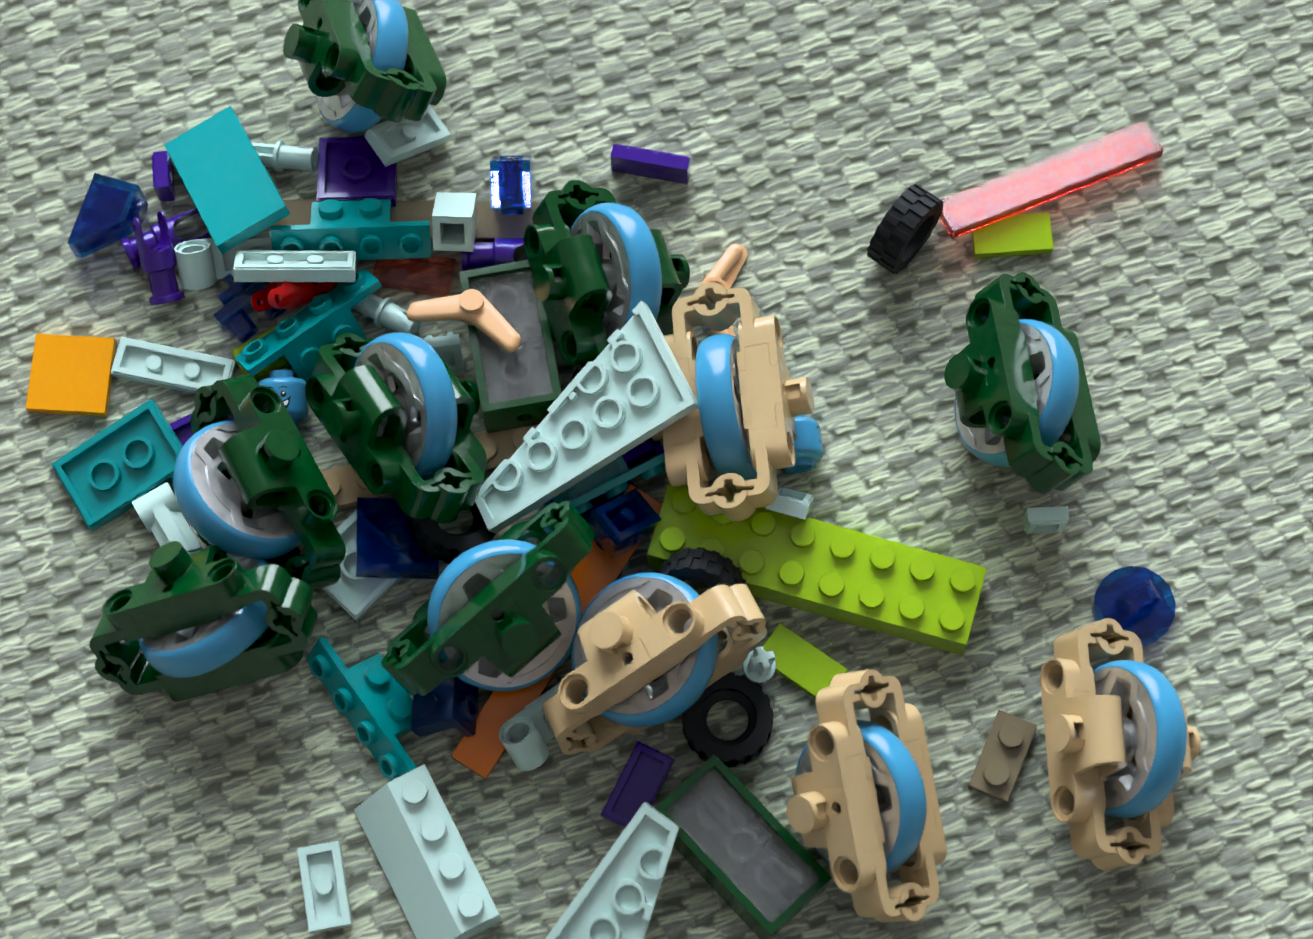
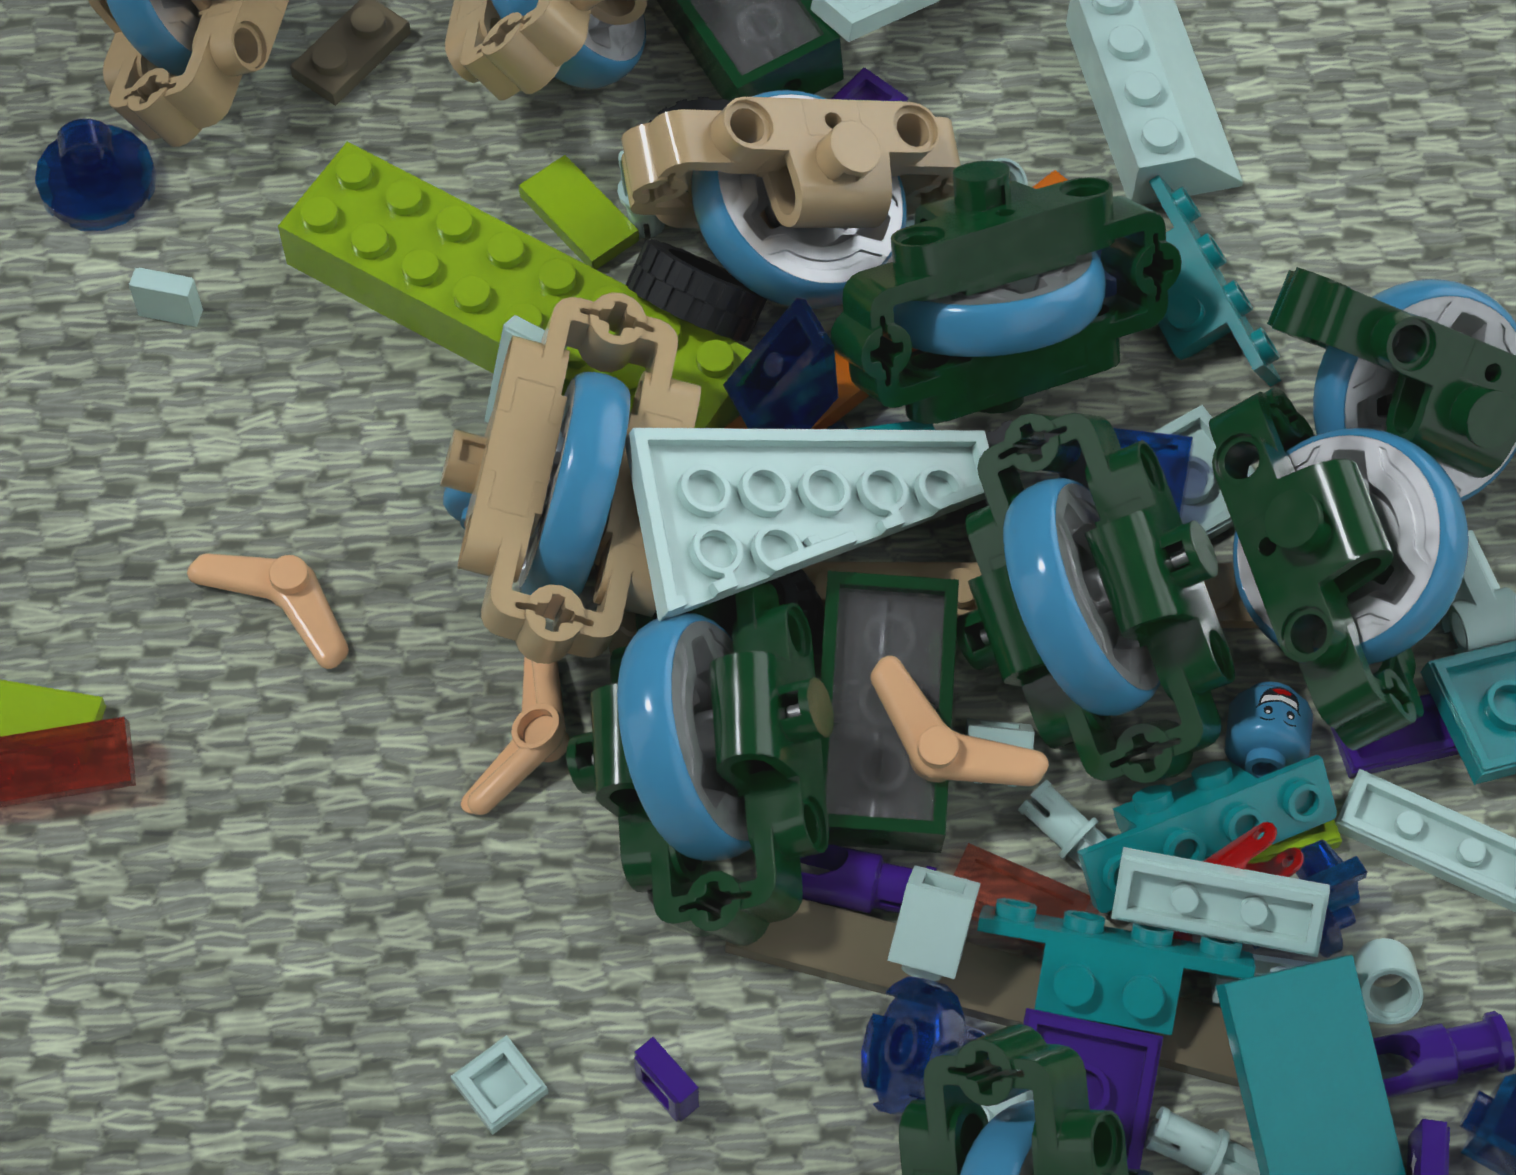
camera: 170 degrees left, 10 degrees down
(158, 263) = (1450, 986): dark purple piece -> none
(324, 887) = (1297, 96): light aqua plate -> none
(448, 160) = (916, 1027): none -> clear blue tile
(511, 183) = (818, 990): clear blue slope -> none
(583, 119) = (666, 1080): none -> dark purple tile
(650, 163) = (574, 971): dark purple tile -> none
(674, 103) = (499, 1084): none -> light aqua tile
(893, 354) = (289, 586): none -> light nougat piece
(905, 228) = (196, 729): black tyre -> none
(1024, 387) = (122, 417): dark green piece -> none

